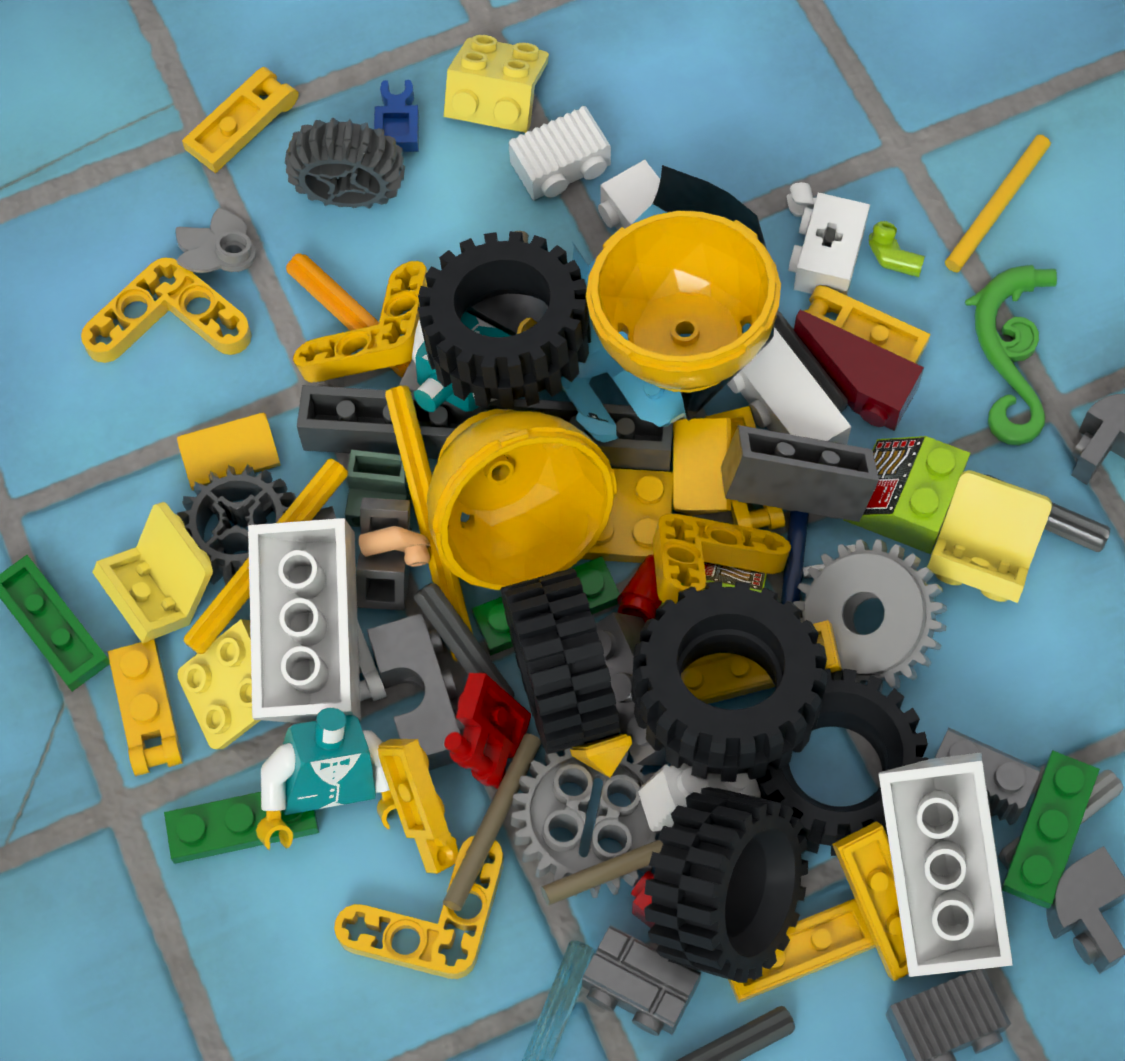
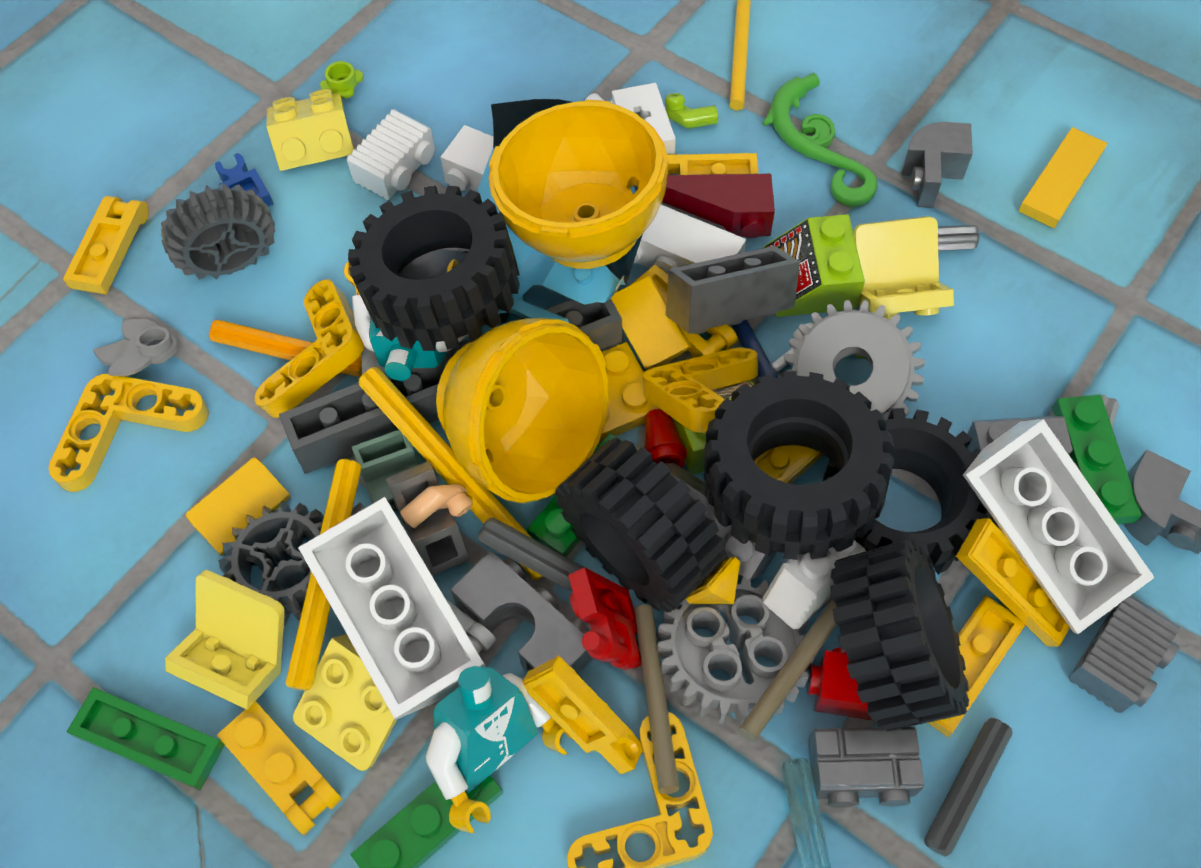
camera: 30 degrees left, 5 degrees down
(558, 31) = (341, 78): none -> lime plate

